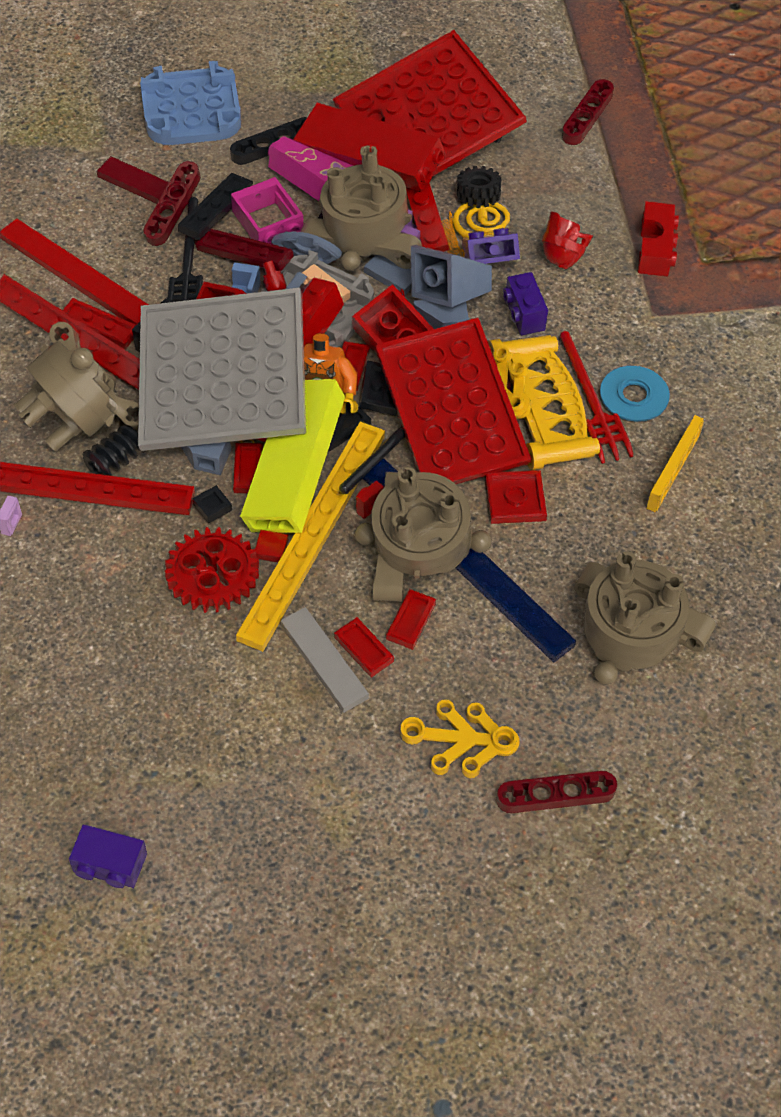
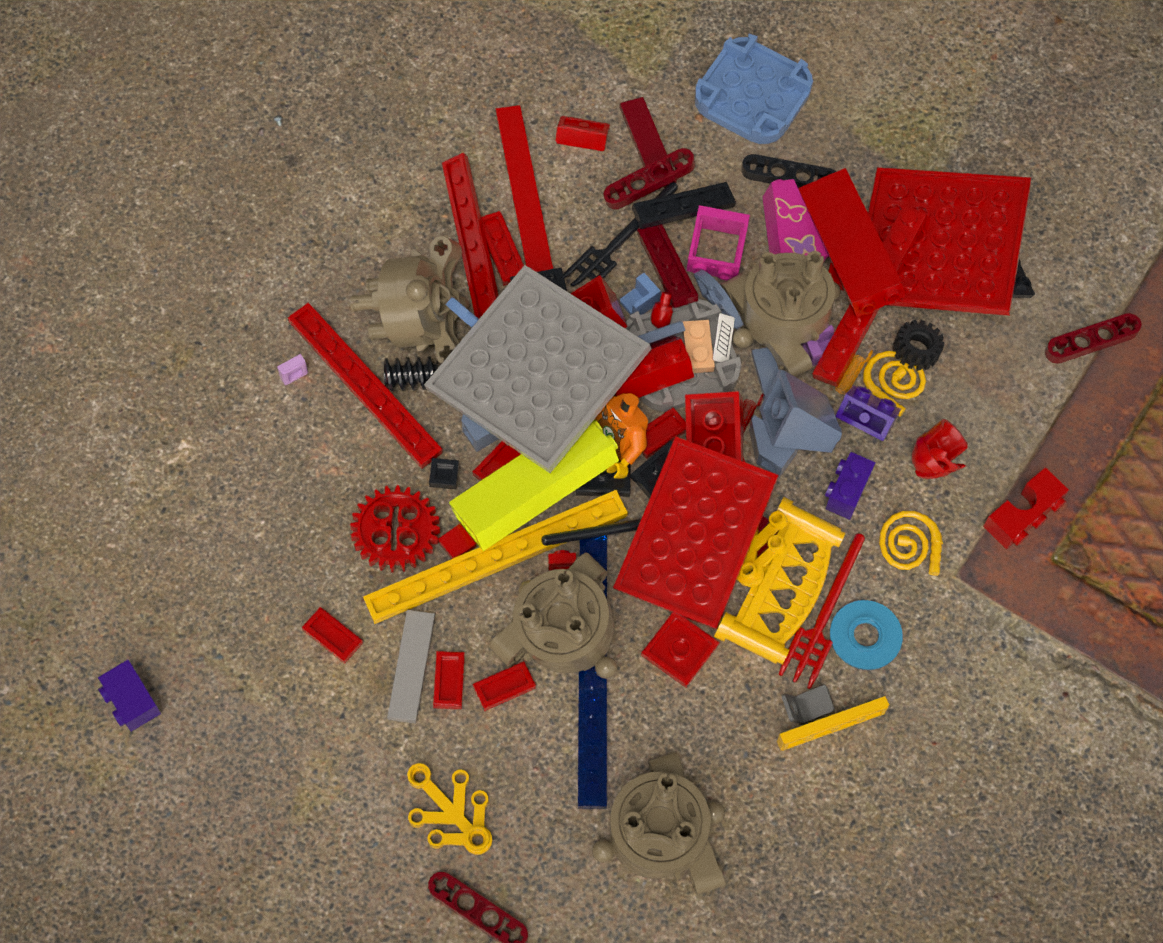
camera: 40 degrees right, 10 degrees up
(86, 209) = (582, 133): none -> red slope
(124, 374) = (462, 312): none -> medium blue tile
(235, 685) = (332, 635): none -> red tile
(338, 266) = (723, 338): none -> white sticker
(598, 315) = (936, 542): none -> yellow piece
(648, 462) = (808, 705): none -> dark grey bracket

